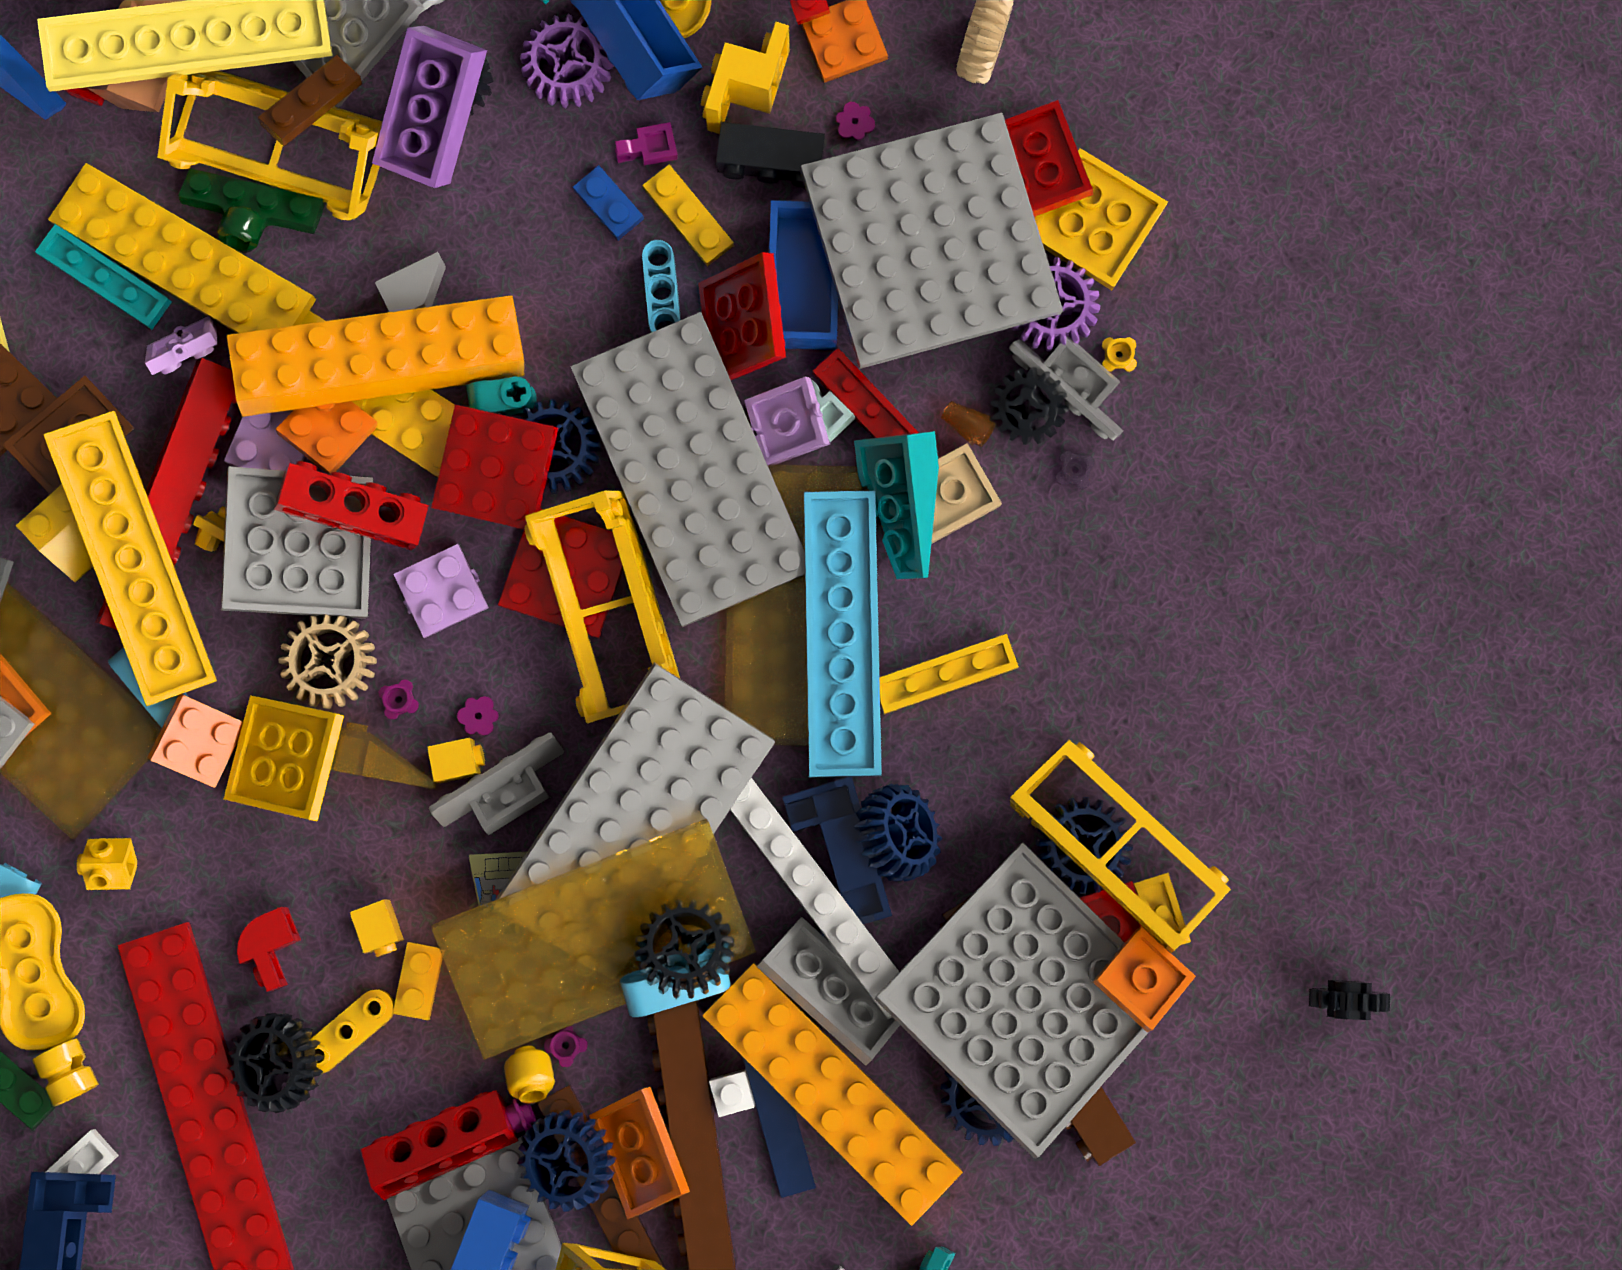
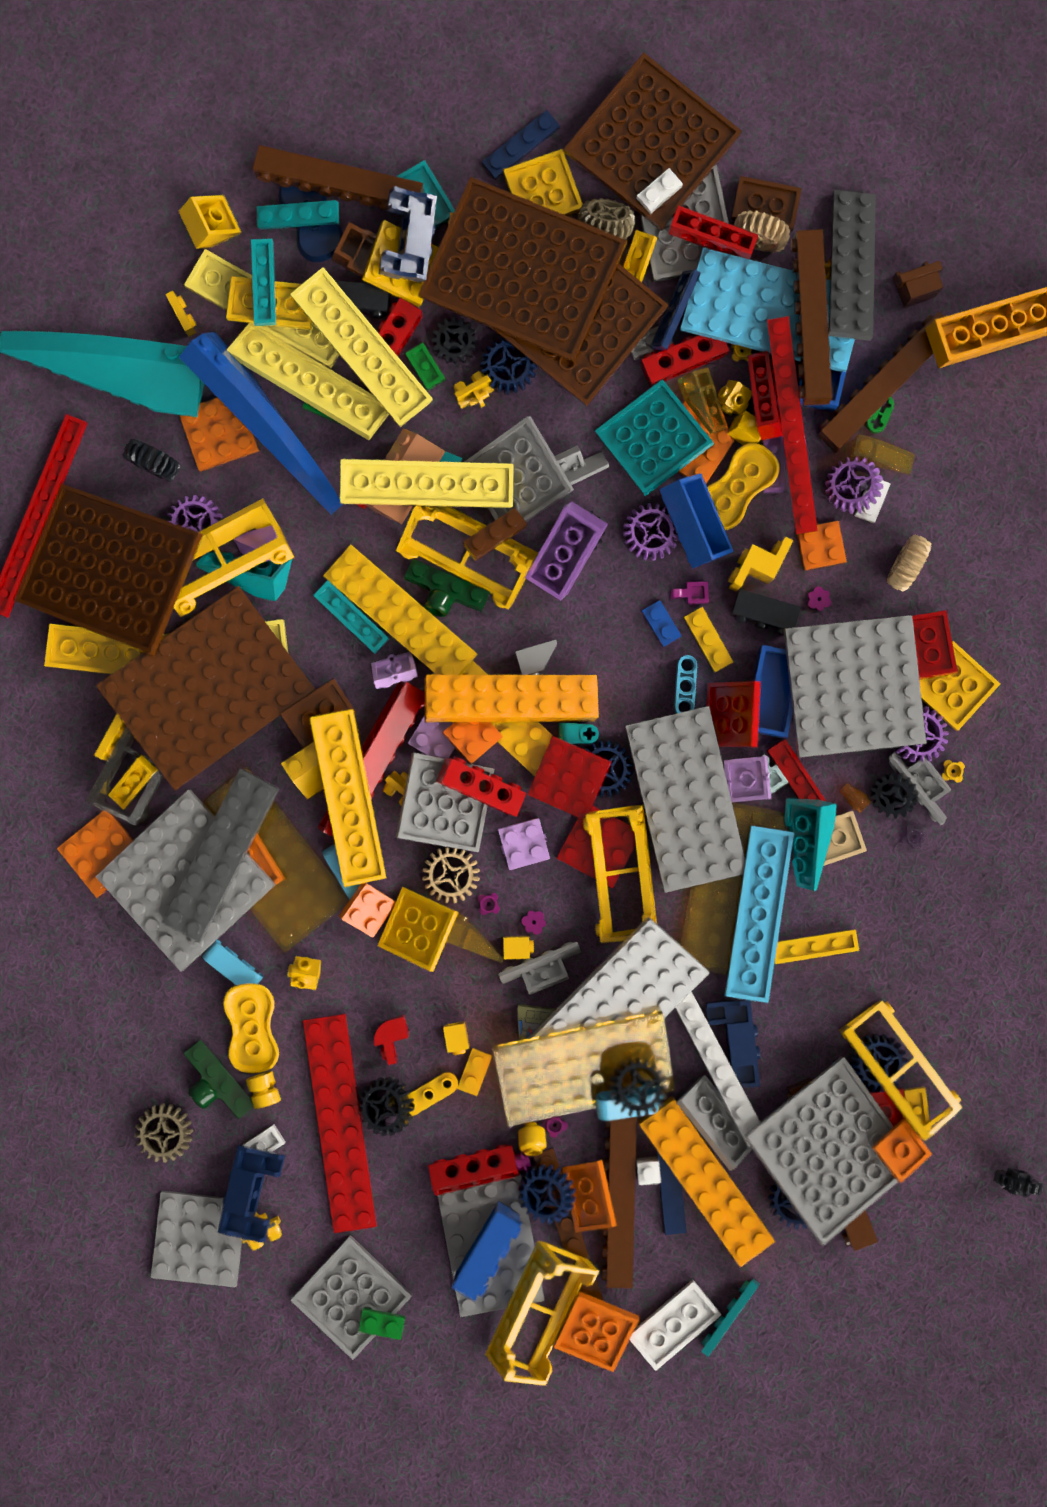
camera: 15 degrees right, 5 degrees up
(891, 835) = (772, 1038): dark blue gear -> none

